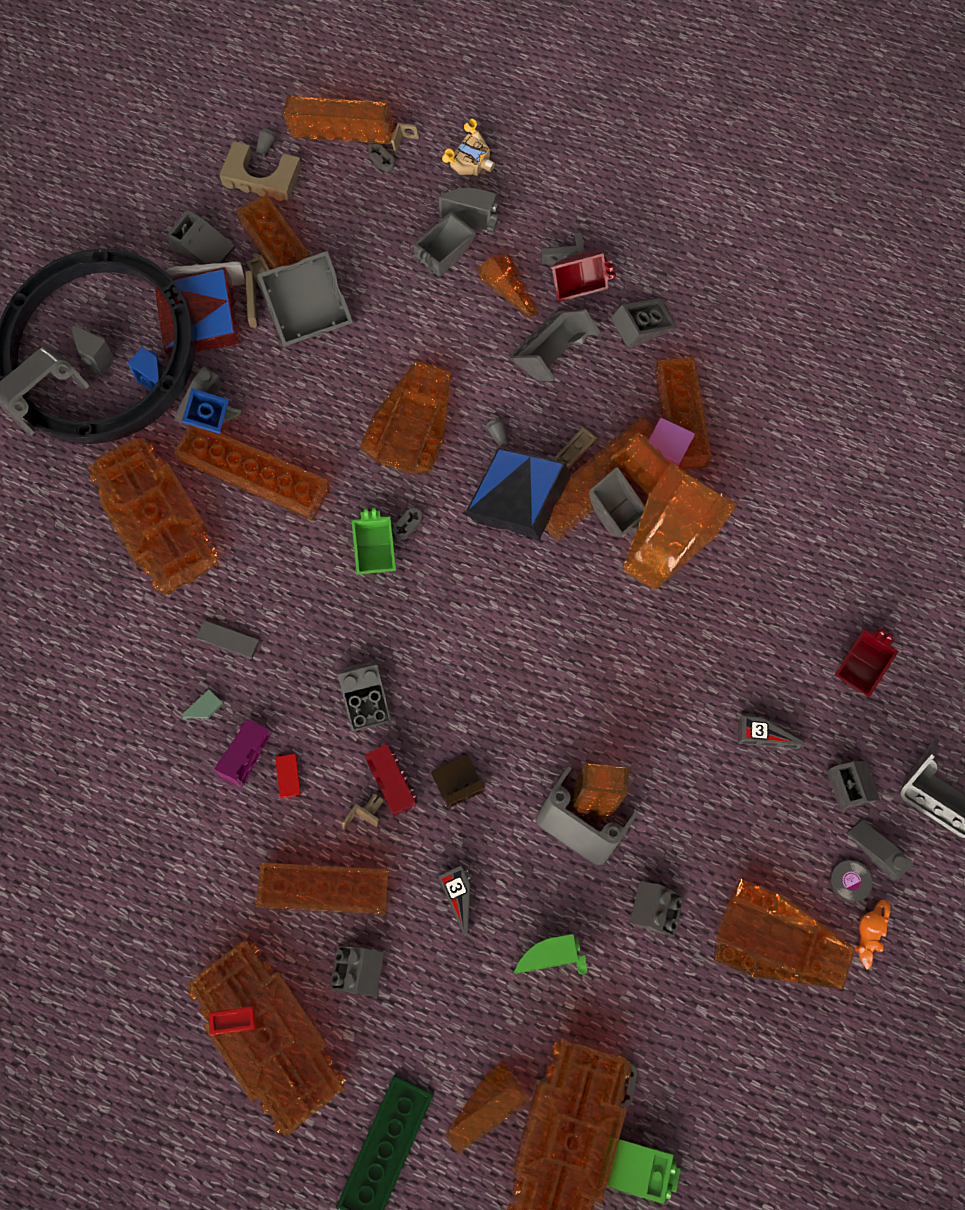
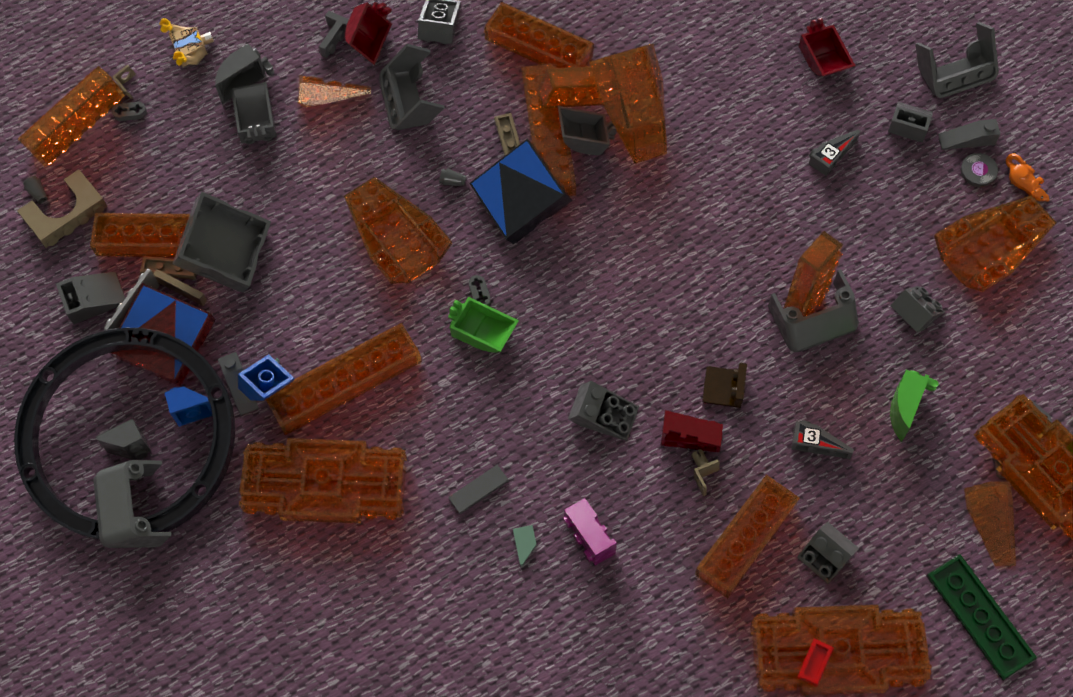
camera: 50 degrees left, 5 degrees down
(288, 776) = (631, 511): red tile -> none
(671, 440) = (559, 56): medium lavender tile -> none

